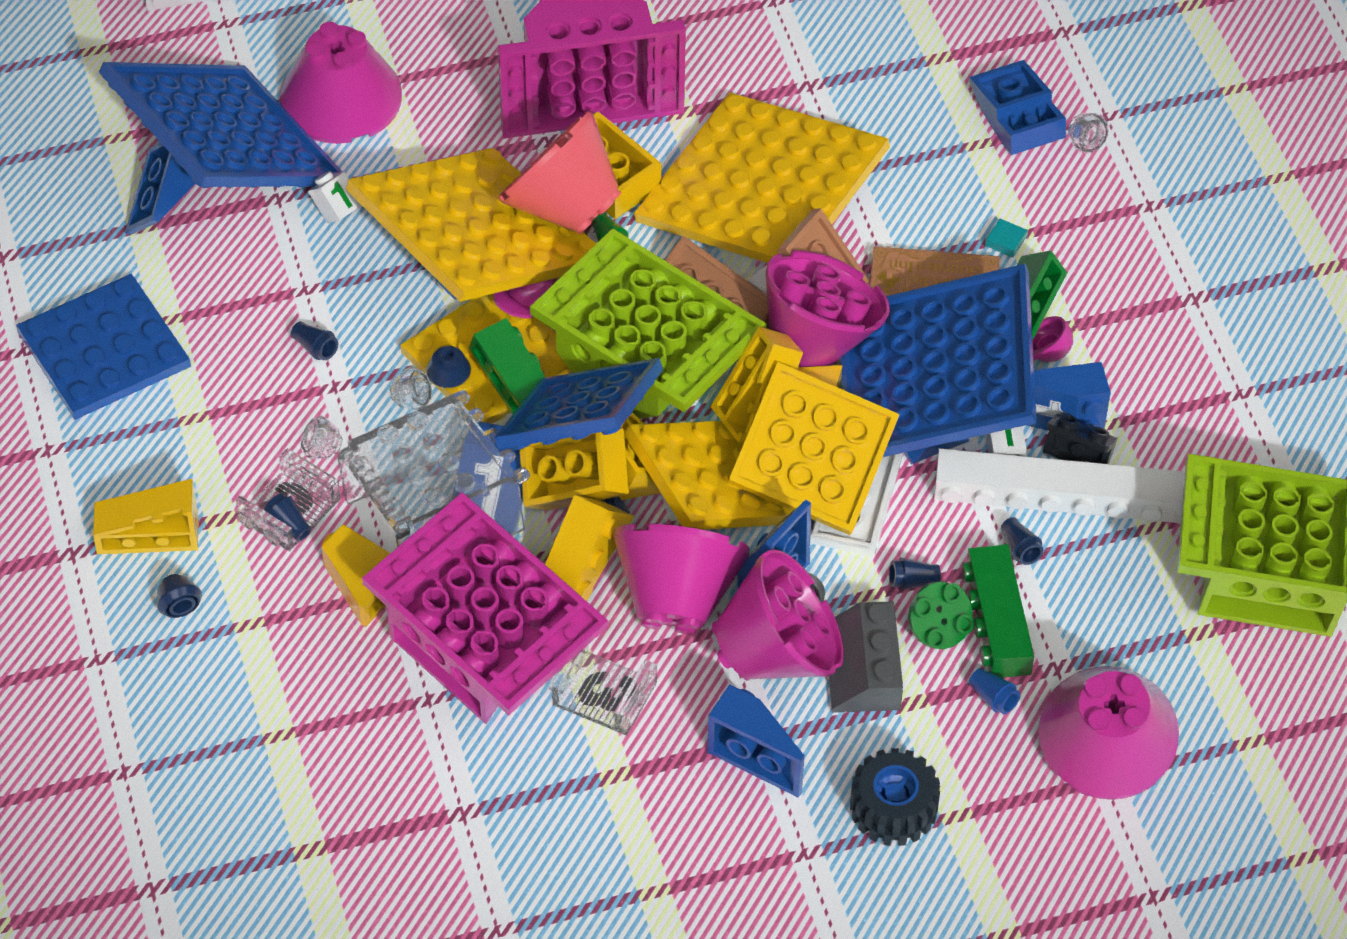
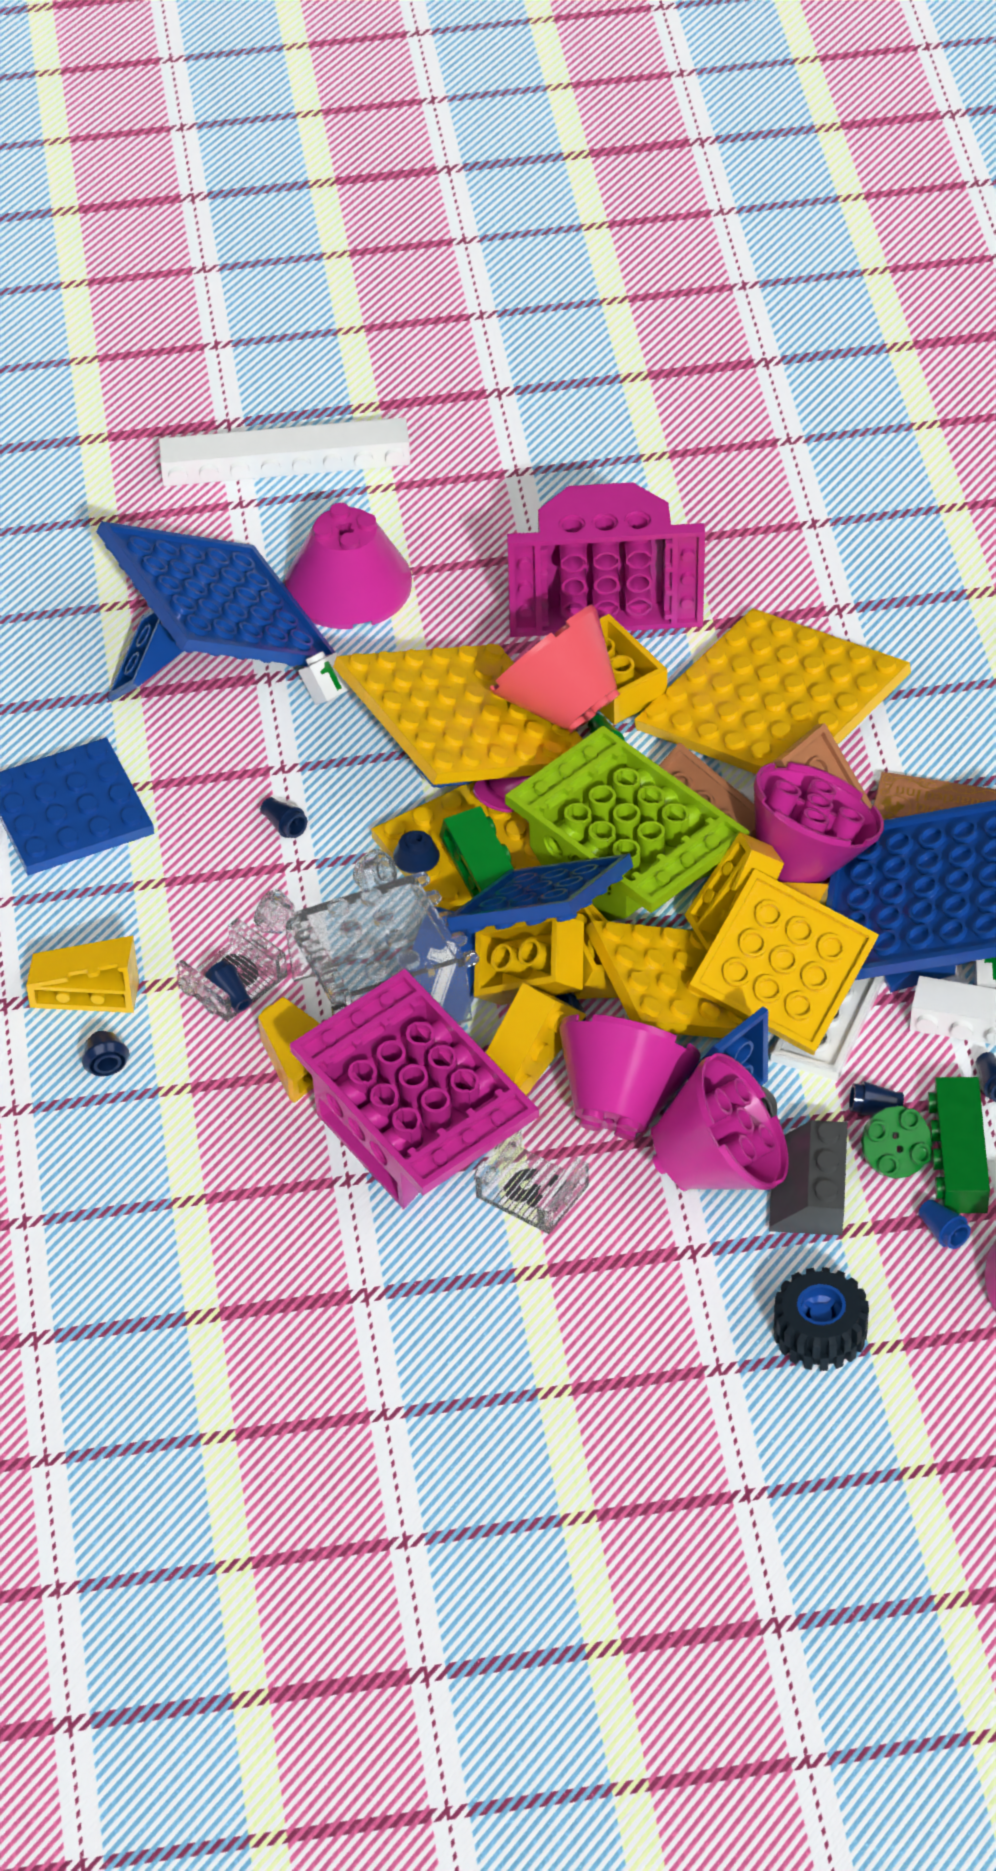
camera: 10 degrees right, 5 degrees down
(754, 741) = (677, 1247): blue slope -> none

